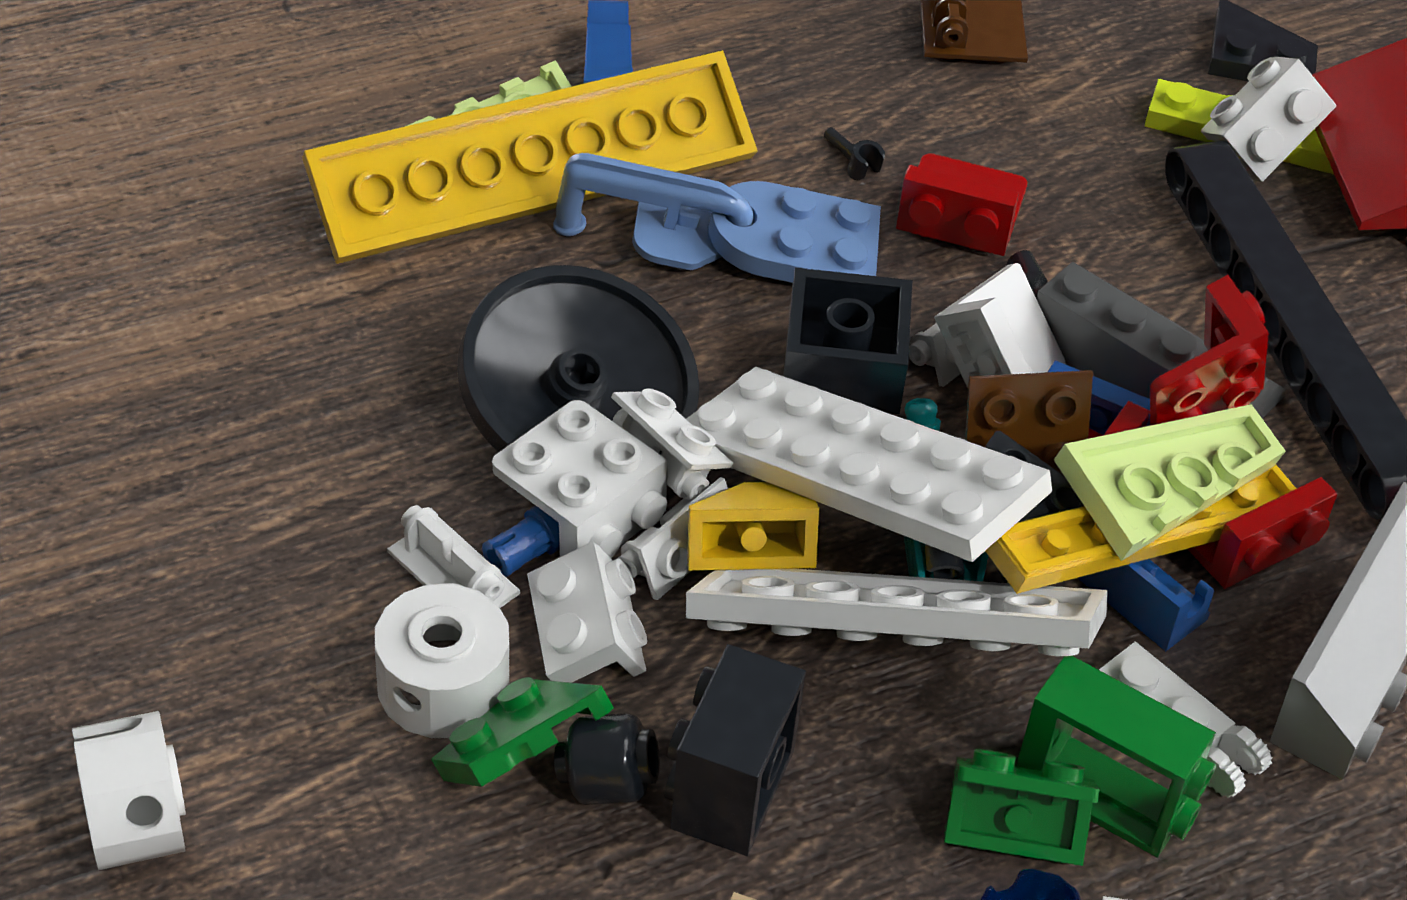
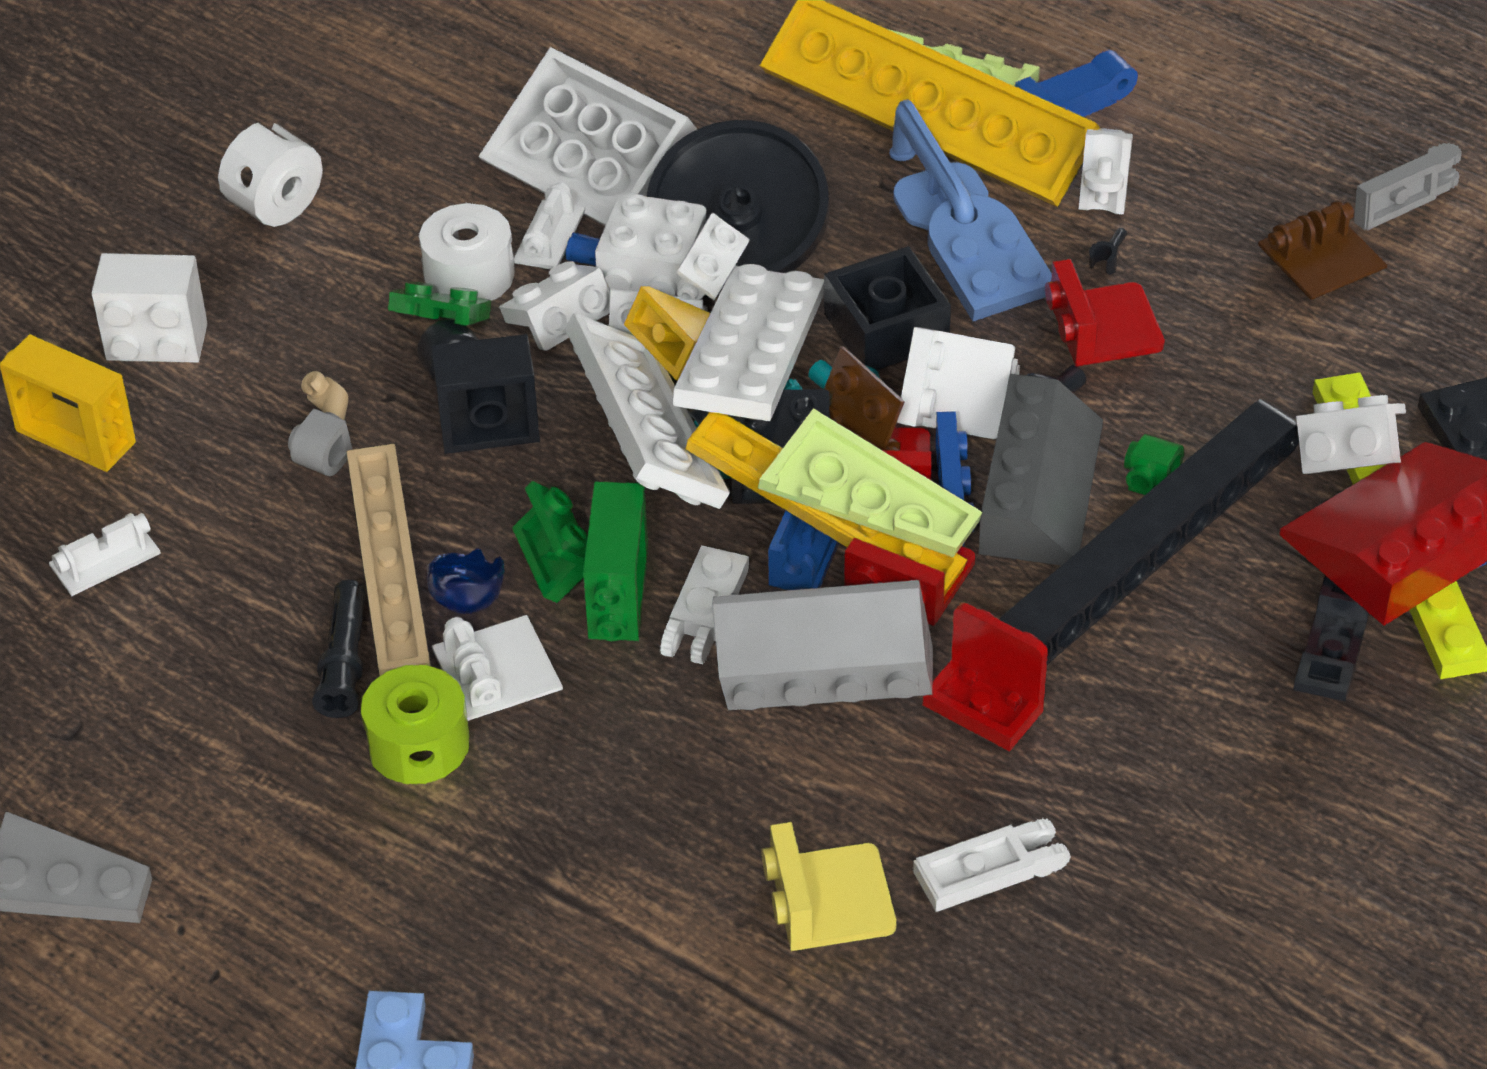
camera: 65 degrees right, 0 degrees up
(338, 453) = (583, 133): none -> white slope
(772, 90) = (1105, 170): none -> white hips
(1197, 263) = (1151, 462): none -> green plate
(1230, 370) = (979, 466): red bracket -> none

